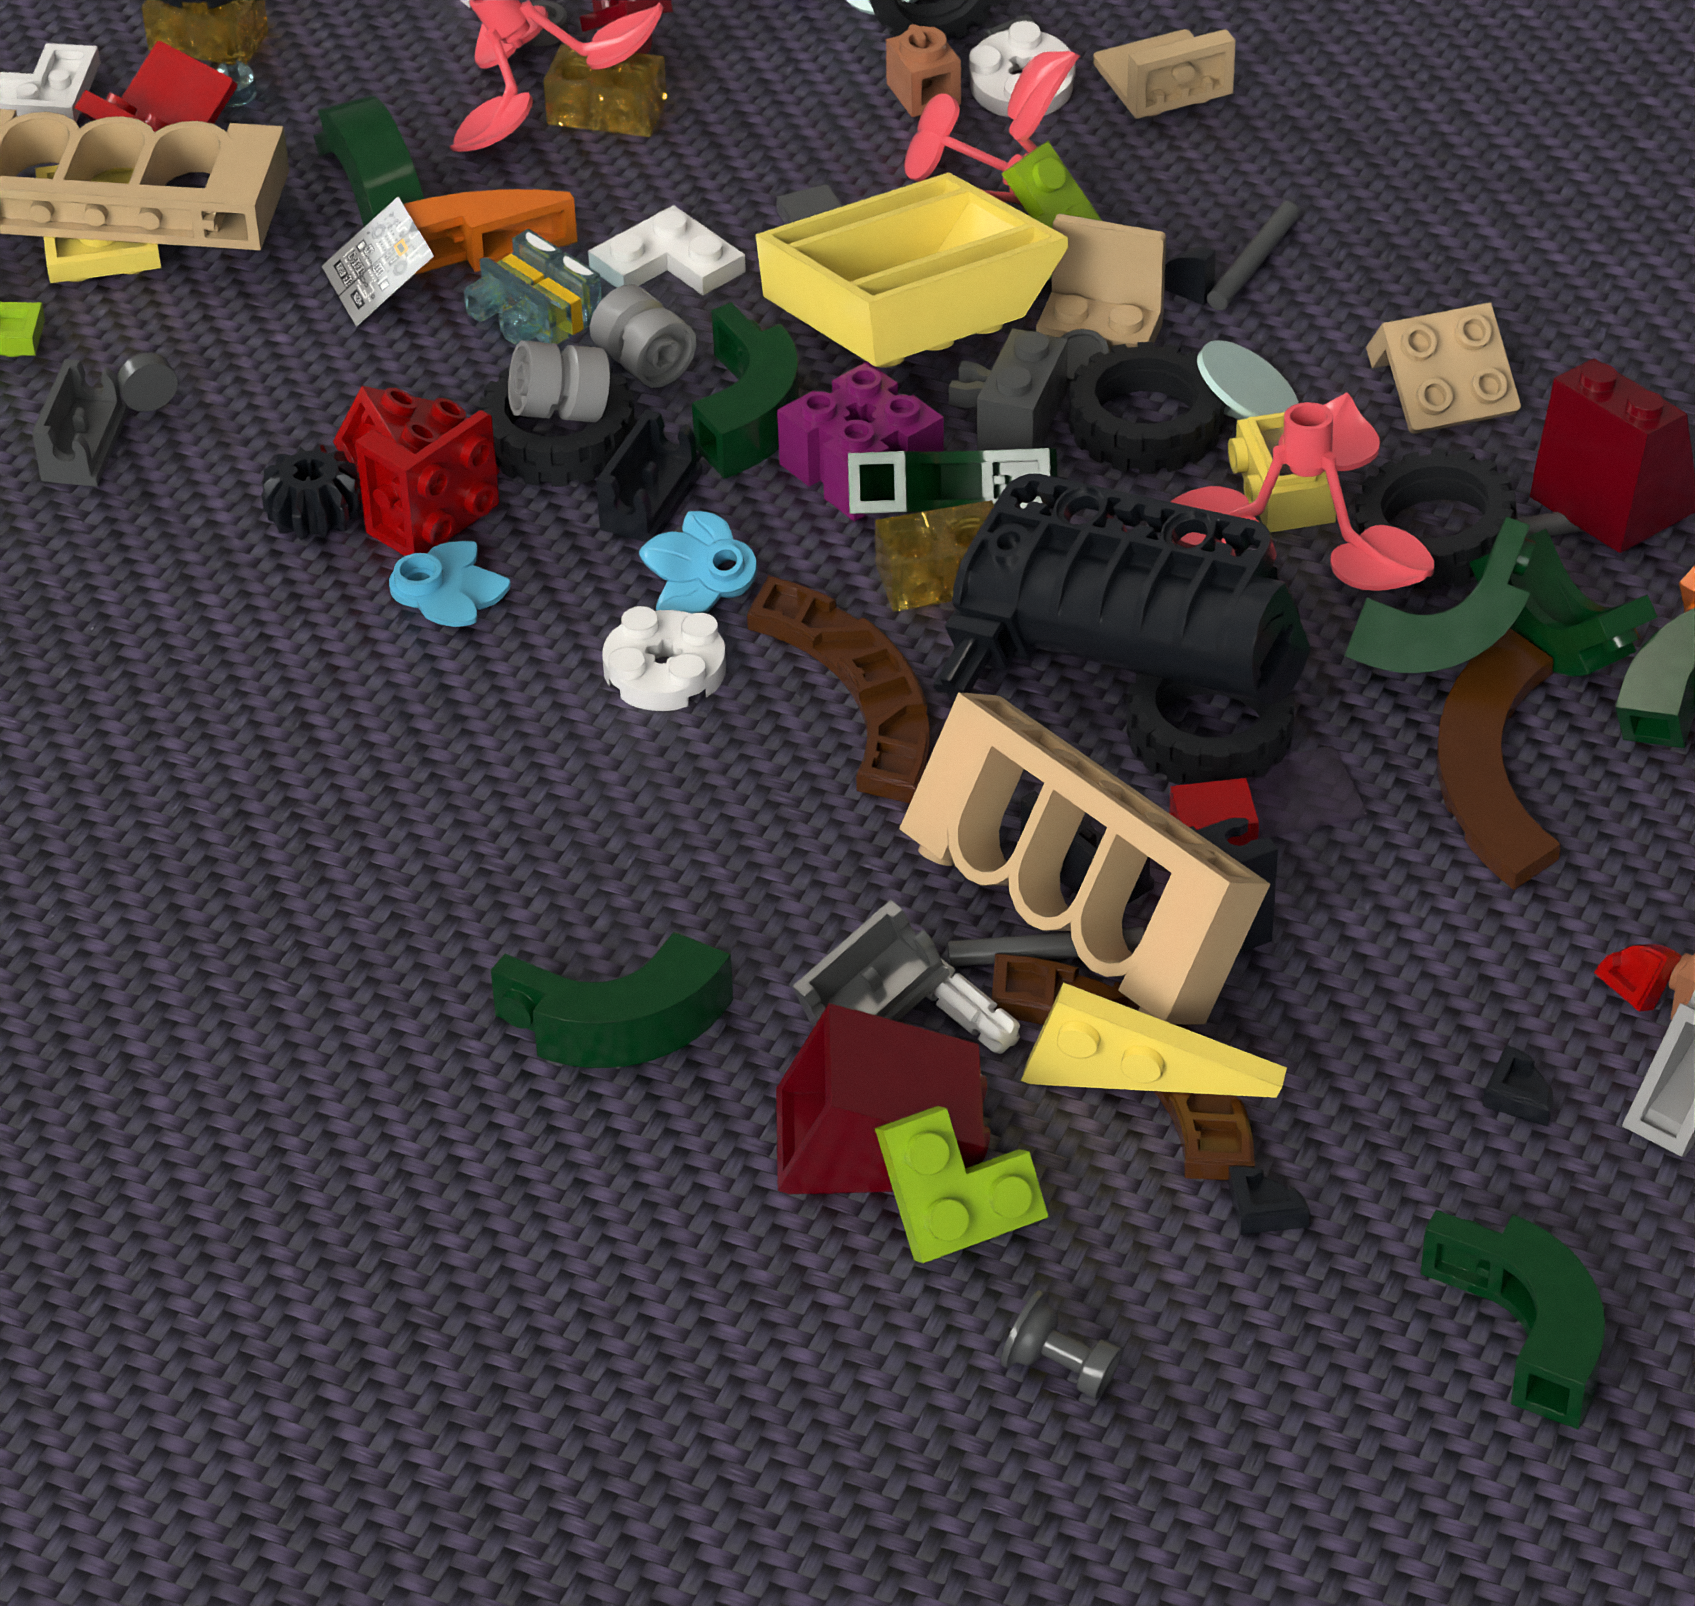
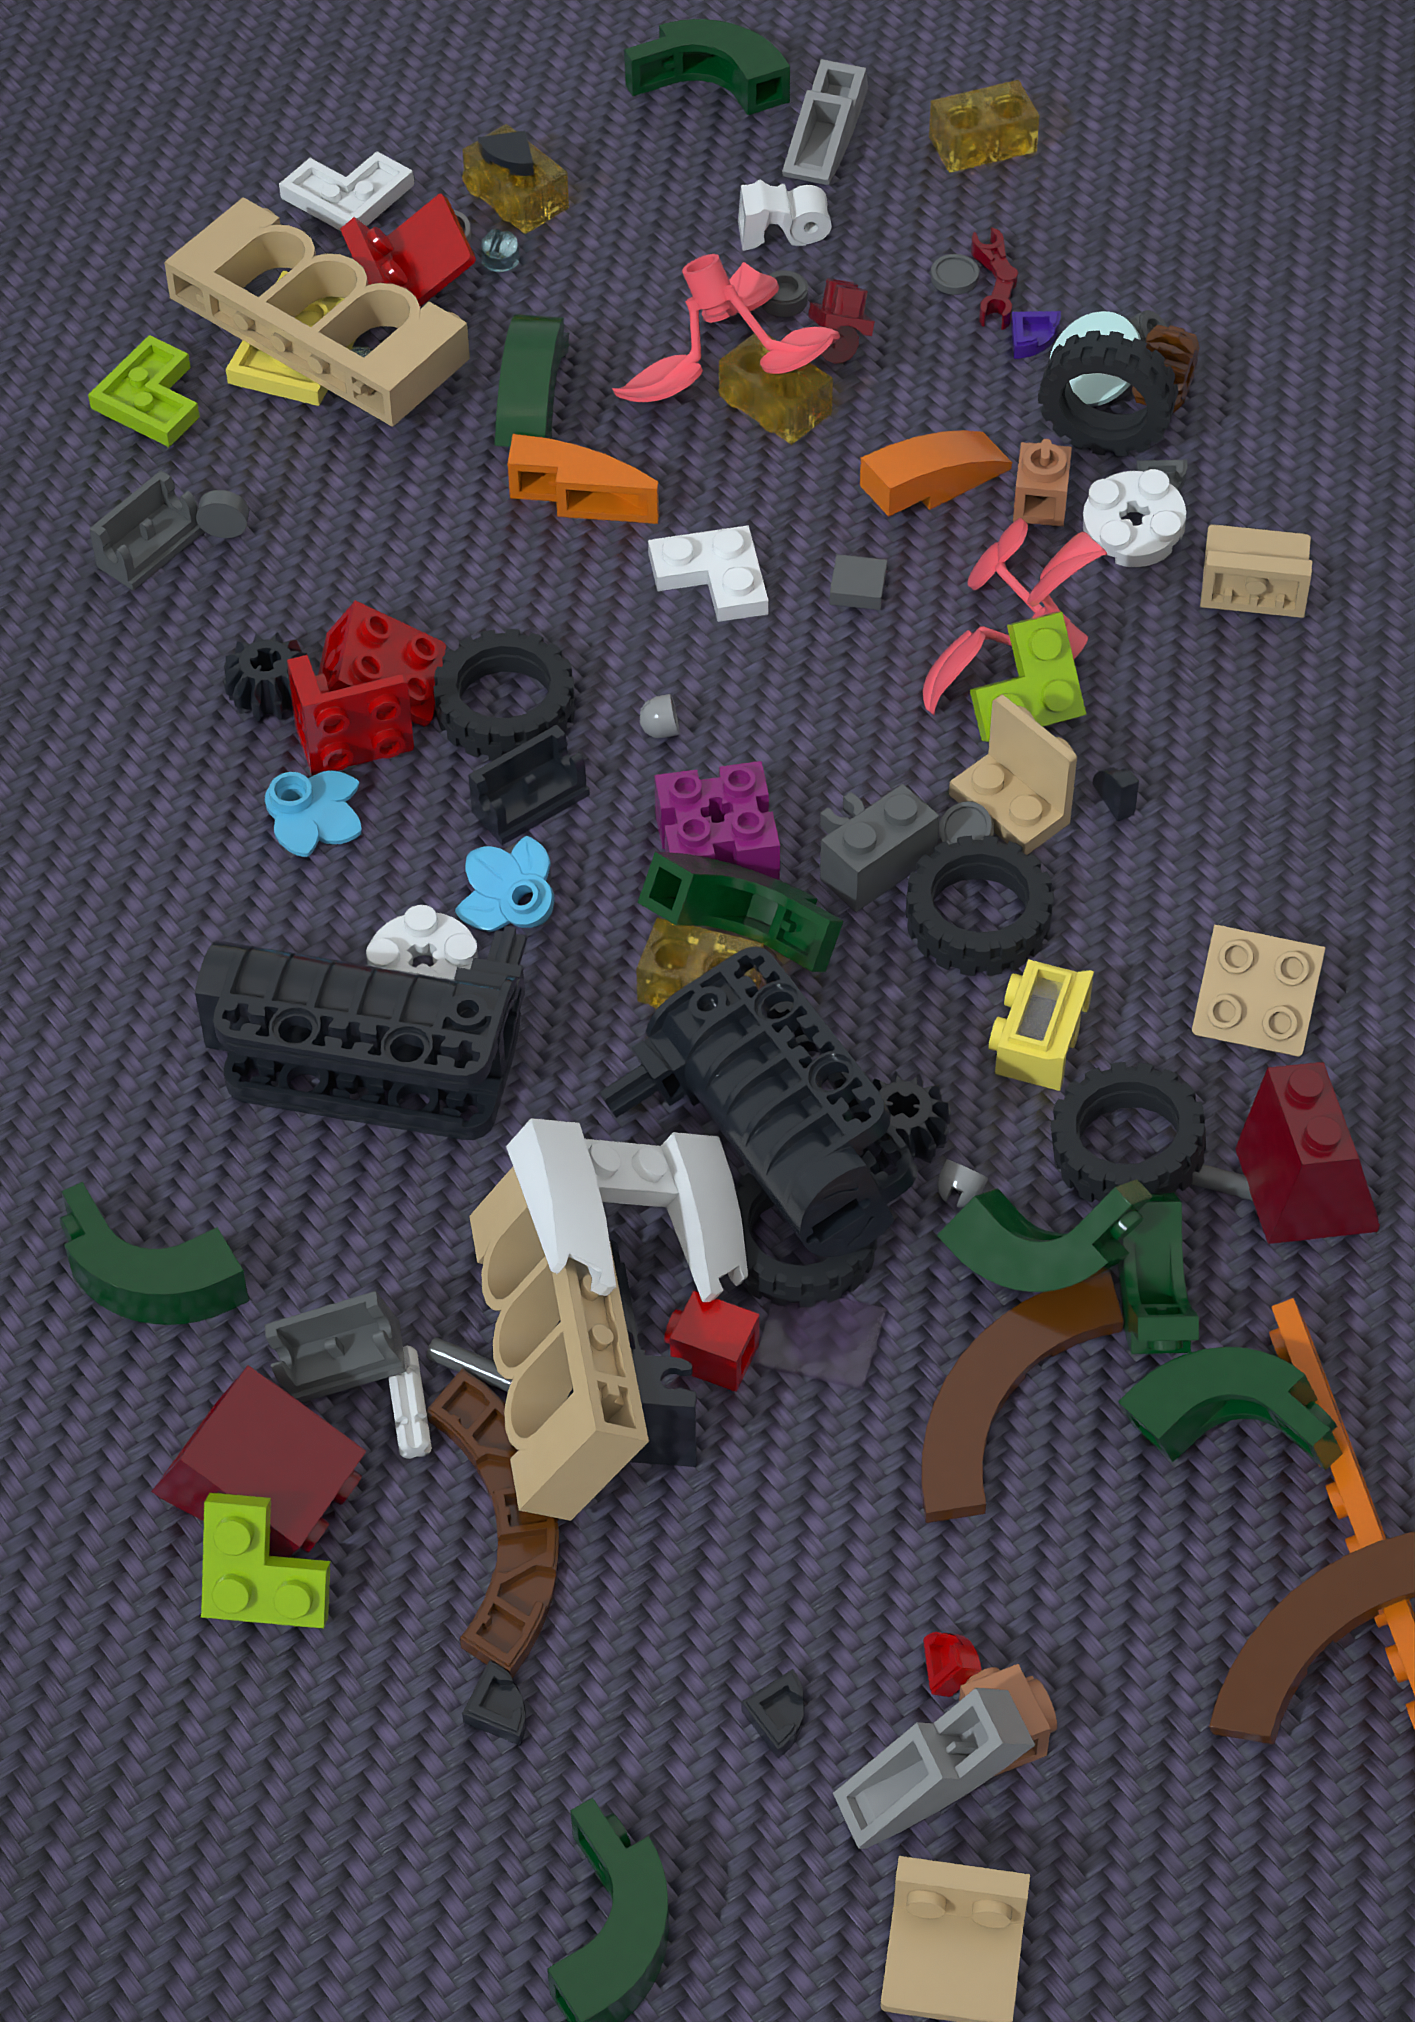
camera: 30 degrees right, 10 degrees up
(377, 261) = (473, 477): sticker -> none
(535, 292) = (579, 563): clear light blue hips -> none
(550, 380) = (503, 667): light grey wheel -> none
(643, 335) = (621, 646): light grey wheel -> none
(672, 725) = (366, 1031): none -> black piece
(720, 374) = (659, 717): none -> light grey hinge
(741, 422) = (683, 743): dark green arch -> none
(805, 103) = (930, 469): none -> orange slope
(871, 671) = (574, 1039): reddish brown tile -> none
(909, 268) = (863, 685): light yellow slope -> none
(1037, 1335) = (223, 1732): dark grey piece -> none
(1057, 716) = (572, 1176): none -> white wedge
(1116, 1047) = (466, 1511): light yellow wing -> none
(1244, 380) = (1074, 923): light aqua piece -> none
(1253, 255) = (1192, 792): dark grey bar -> none
(1321, 615) = (961, 1179): none -> light grey hinge
(1328, 440) = (1079, 1023): coral plant -> none

